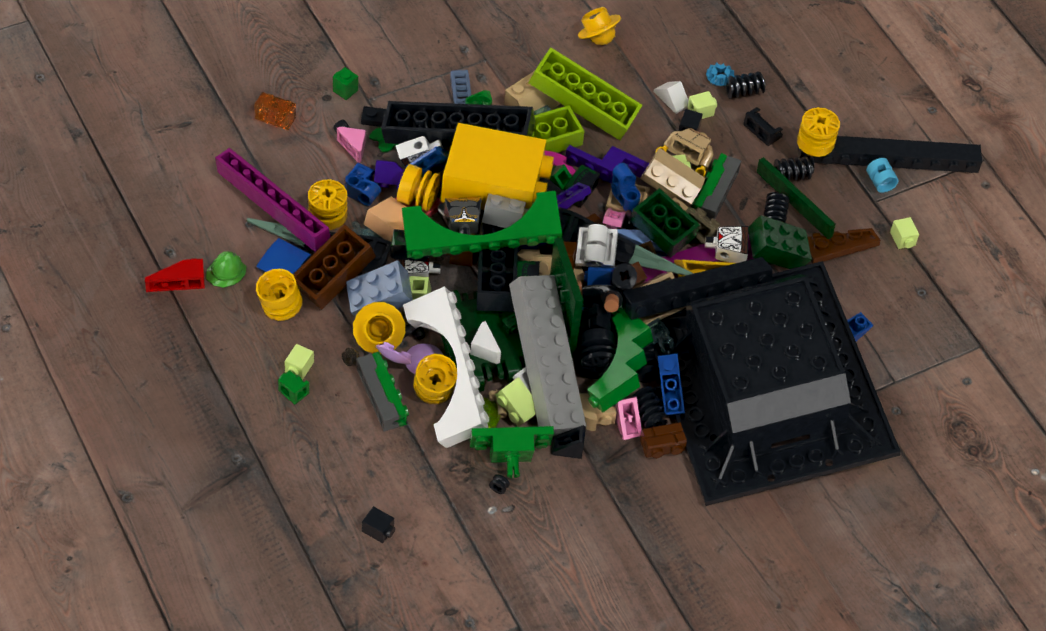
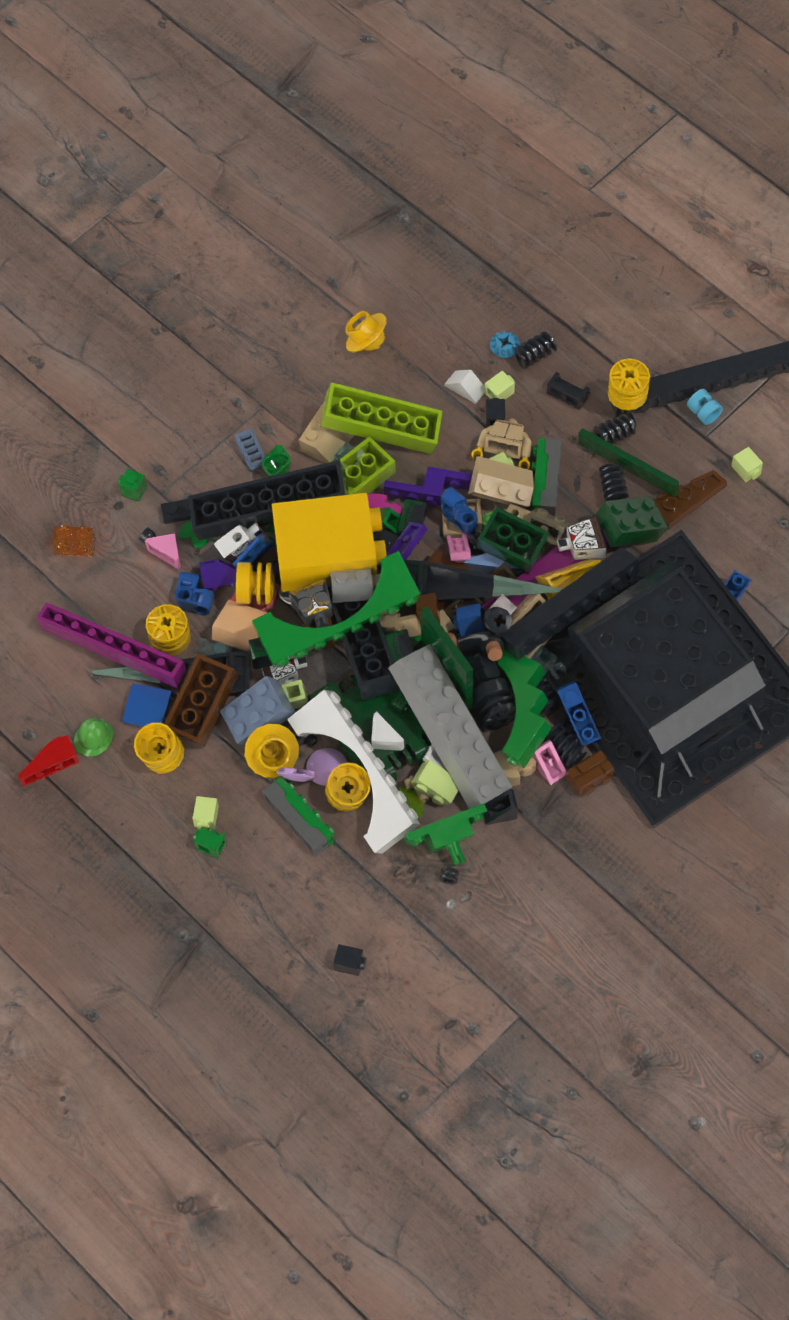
camera: 10 degrees left, 10 degrees up
(350, 356) = (253, 789): clear smoke plate -> none
(596, 246) = (456, 591): white plate -> none

